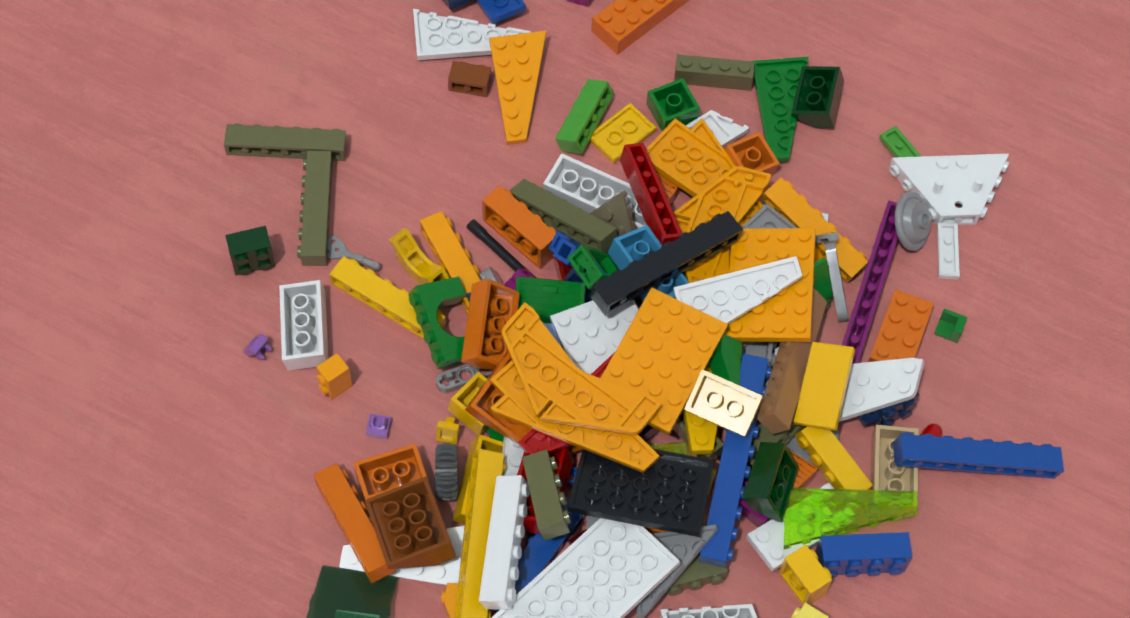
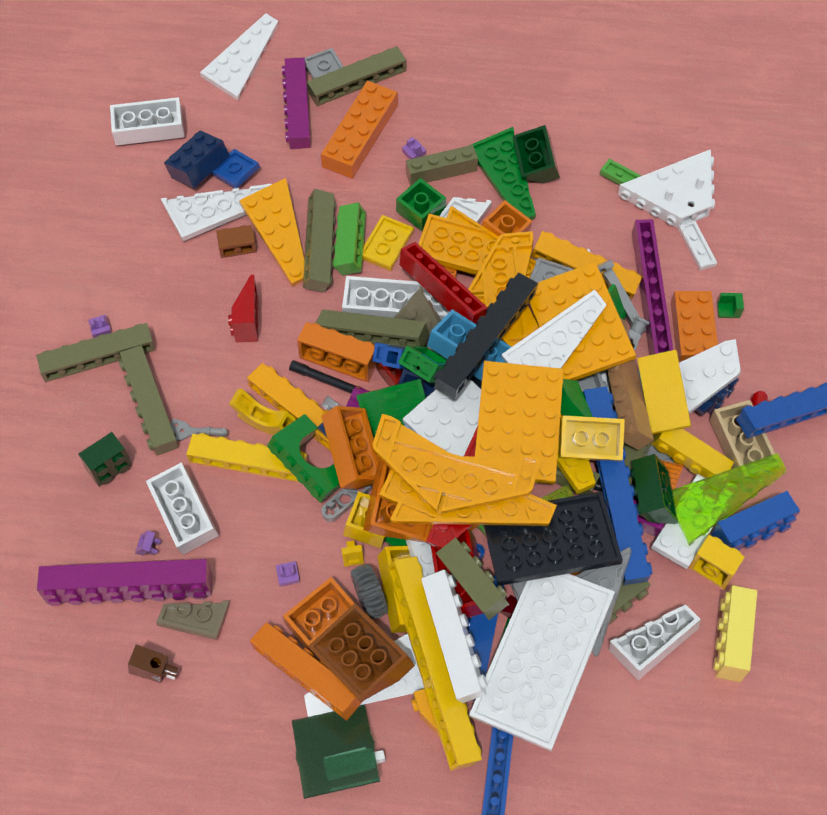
camera: 20 degrees left, 0 degrees up
(206, 456) = (142, 665): none -> reddish brown torso
(221, 374) = (124, 581): none -> magenta brick
(274, 436) = (195, 619): none -> dark tan wing
(300, 117) = (99, 326): none -> medium lavender tile
(333, 376) = (230, 544): light orange brick -> none
(446, 155) = (244, 314): none -> red slope
(552, 107) = (319, 241): none -> olive brick
(694, 45) = (413, 149): none -> medium lavender tile
(834, 316) = (637, 329): none -> light grey connector
(912, 221) = (662, 229): light grey piece -> none

